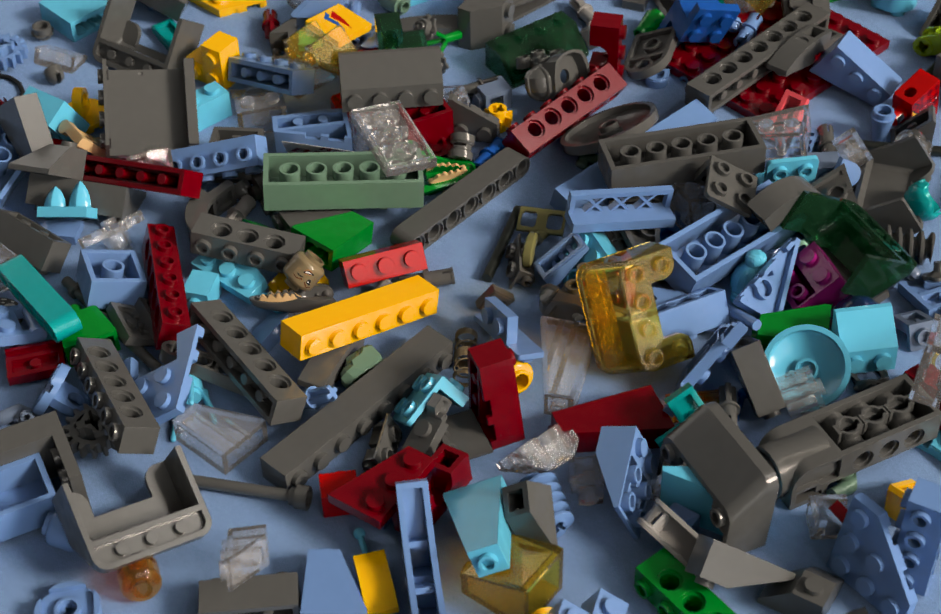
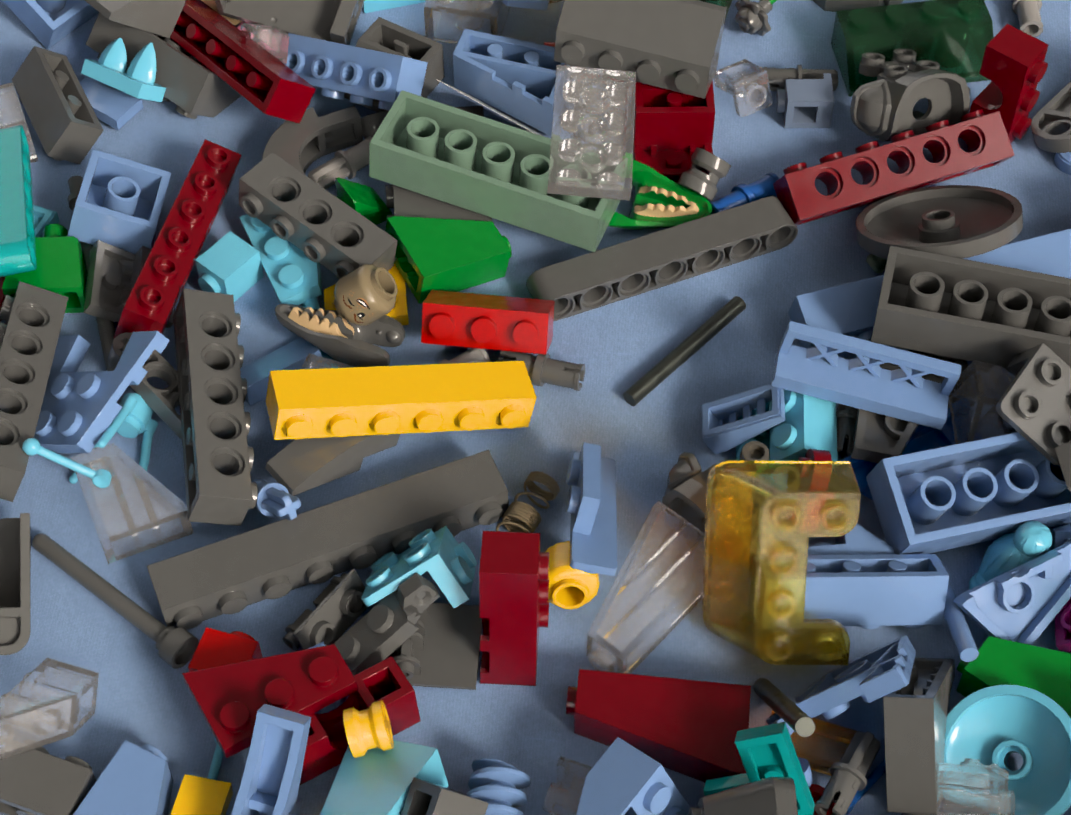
camera: 25 degrees right, 10 degrees up
(113, 232) = (164, 135): clear plant -> none
(202, 421) = (100, 478): none -> medium azure hinge
(359, 364) = (364, 472): sand green rock -> none
(456, 480) = (368, 729): none -> yellow wheel
(474, 121) = (746, 136): dark grey wing -> none
(500, 111) = (791, 140): yellow gear -> none
(503, 295) = (619, 436): dark grey tile -> none
(515, 270) = (677, 405): dark grey hinge -> none
(537, 233) = (745, 355): olive piece -> none
(542, 453) = (528, 731): clear slope -> none
(680, 380) = (784, 707): none -> pearl dark grey bar

